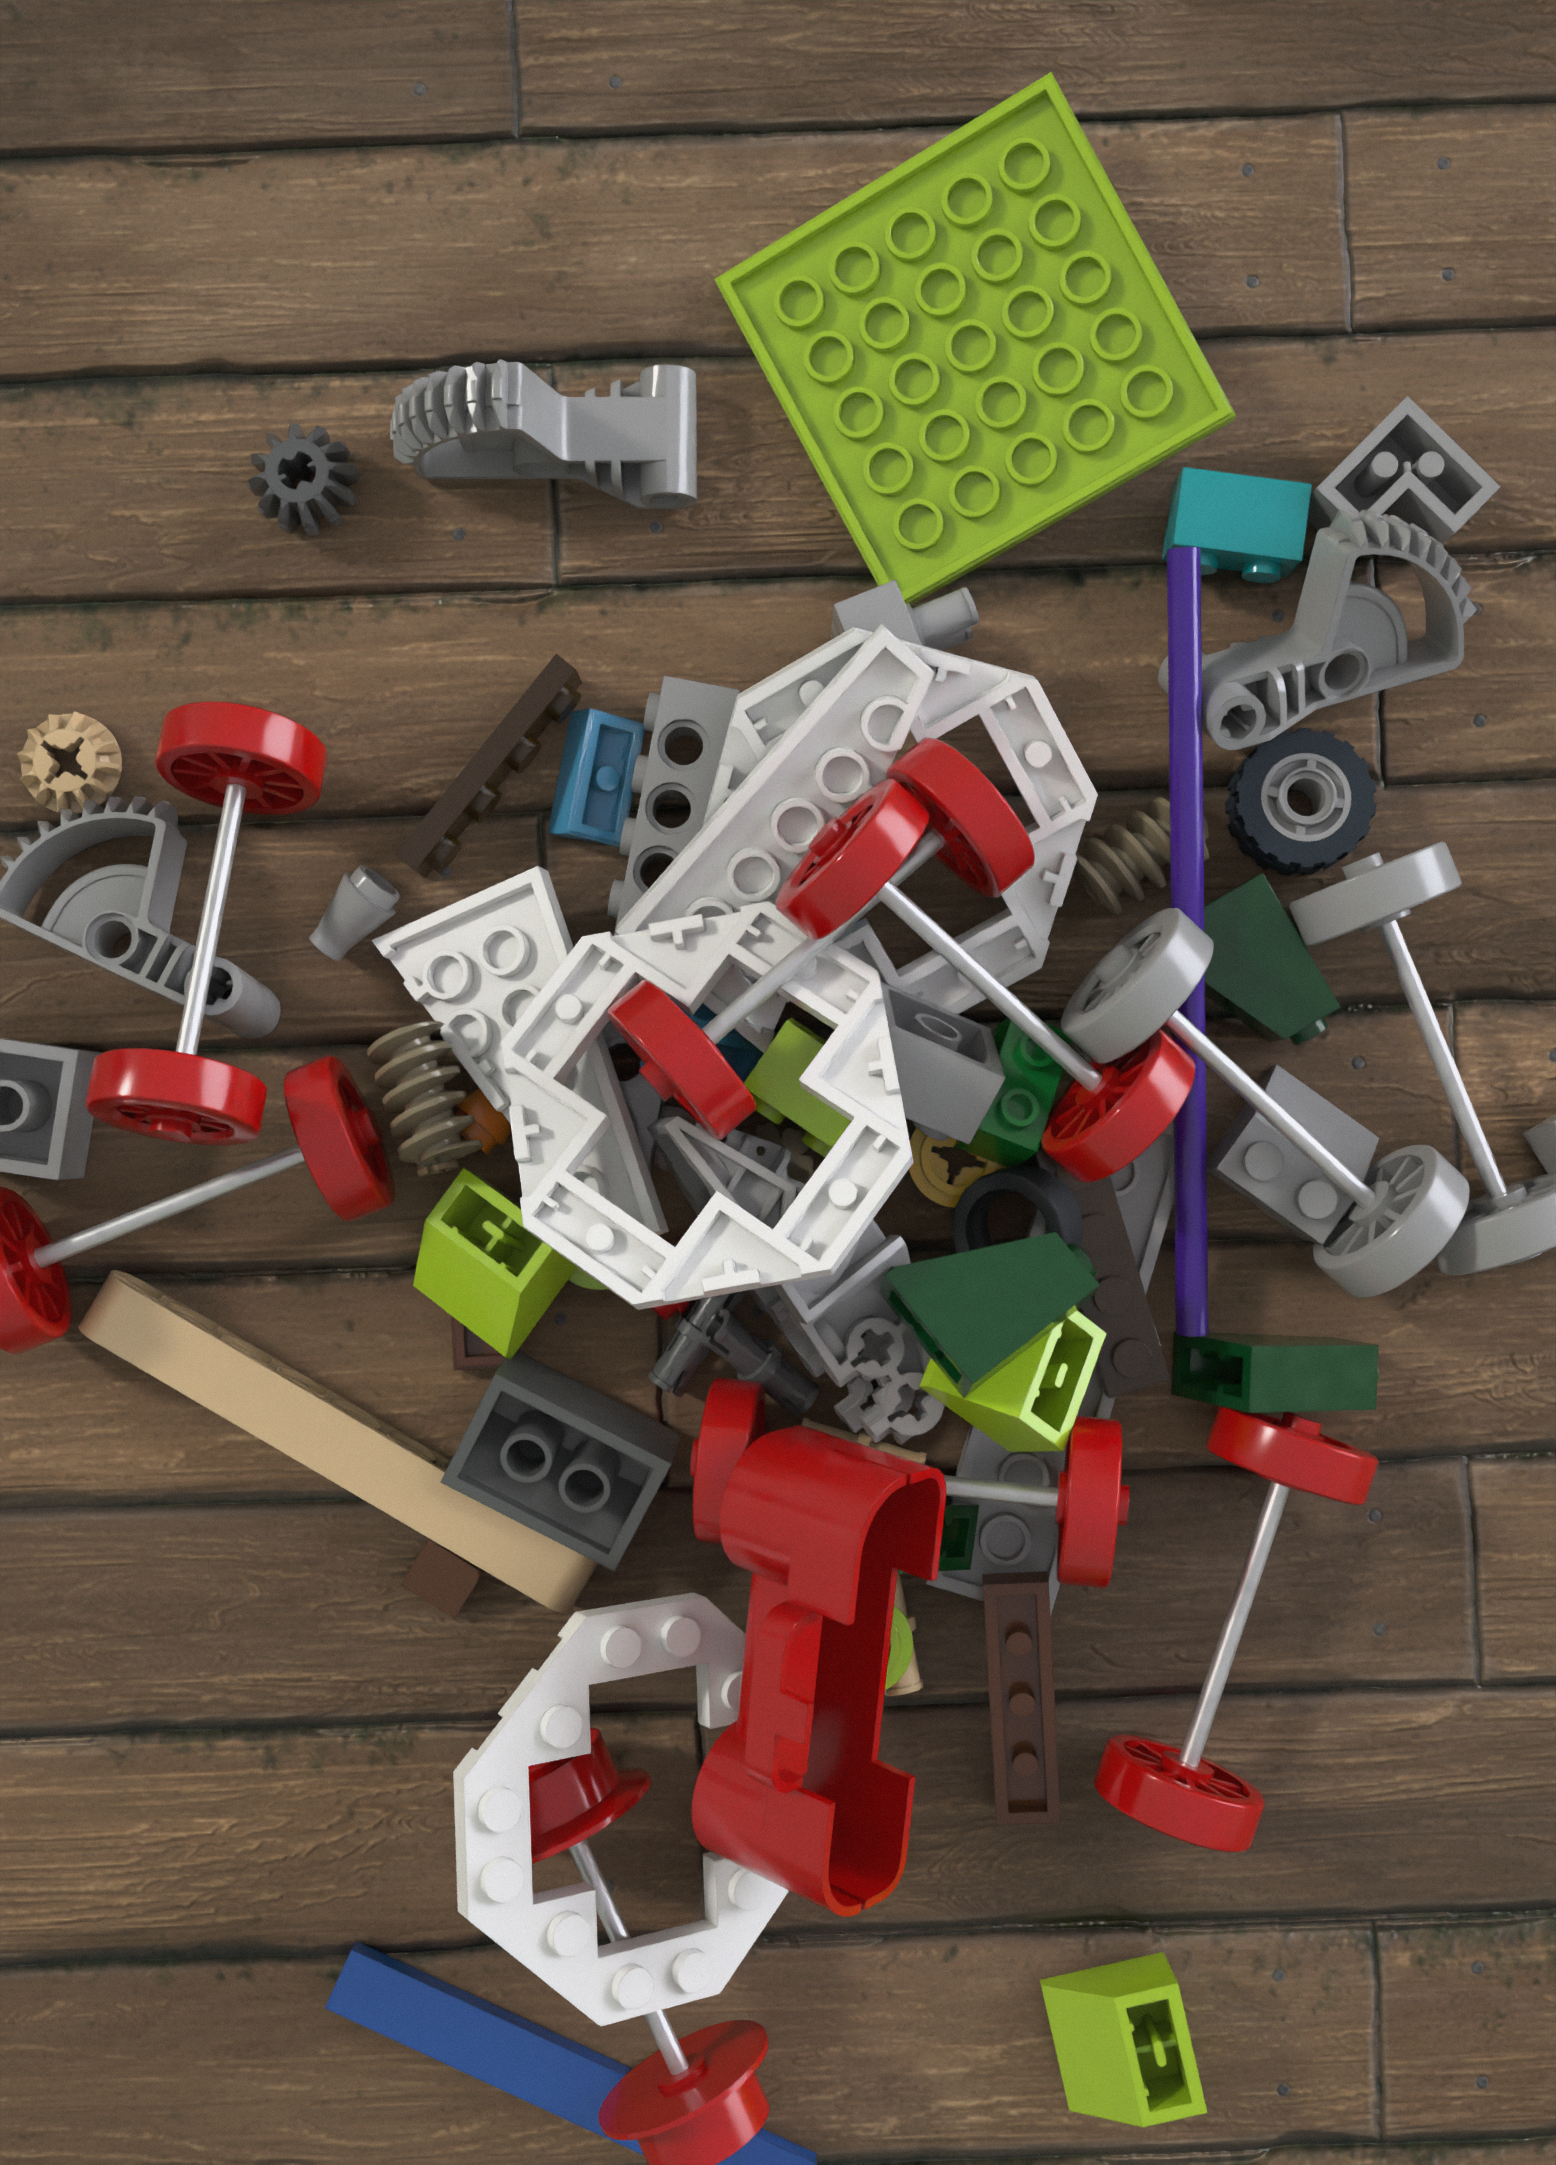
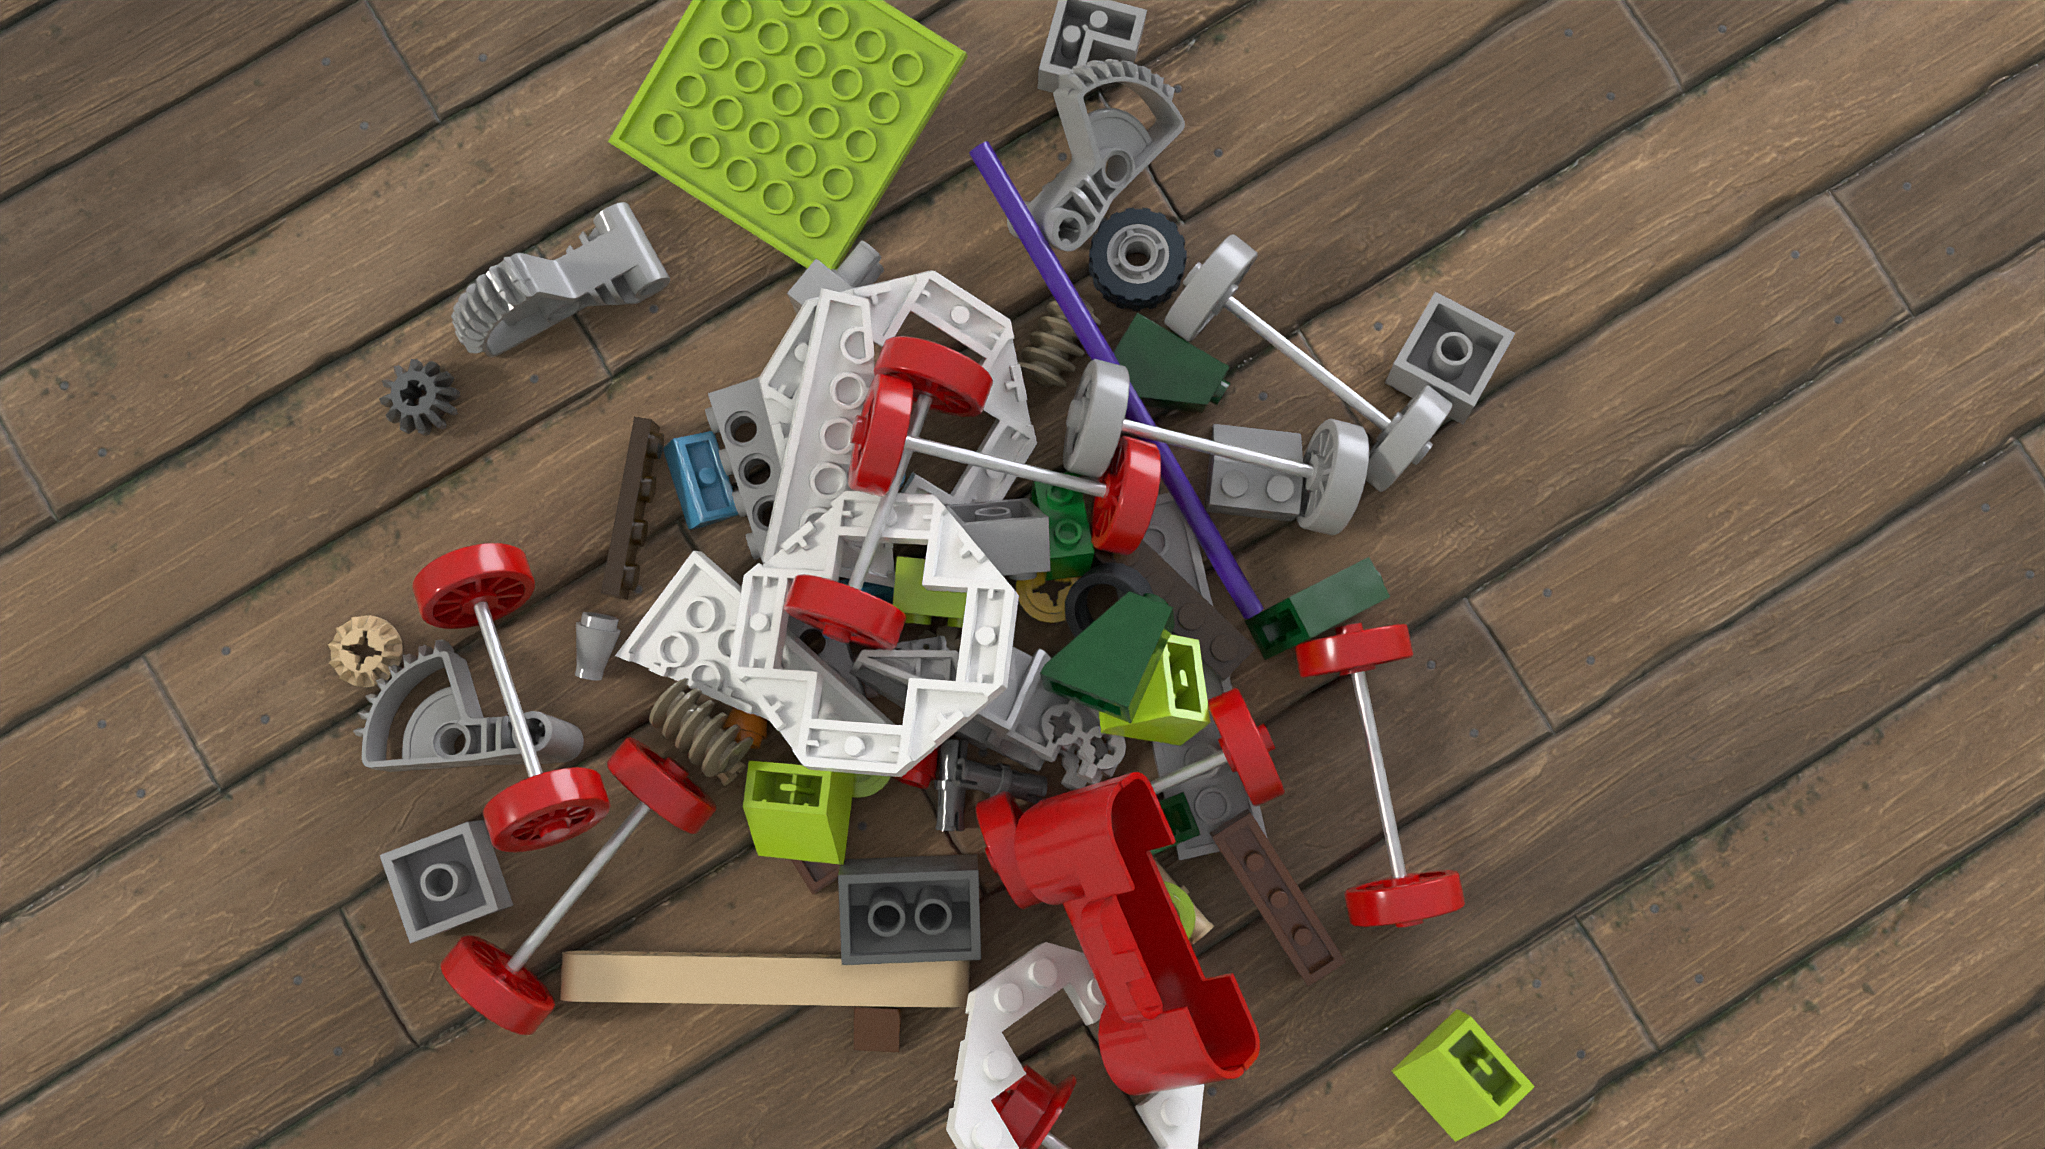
camera: 35 degrees left, 5 degrees down
(1239, 522) = (1005, 114): teal brick -> none

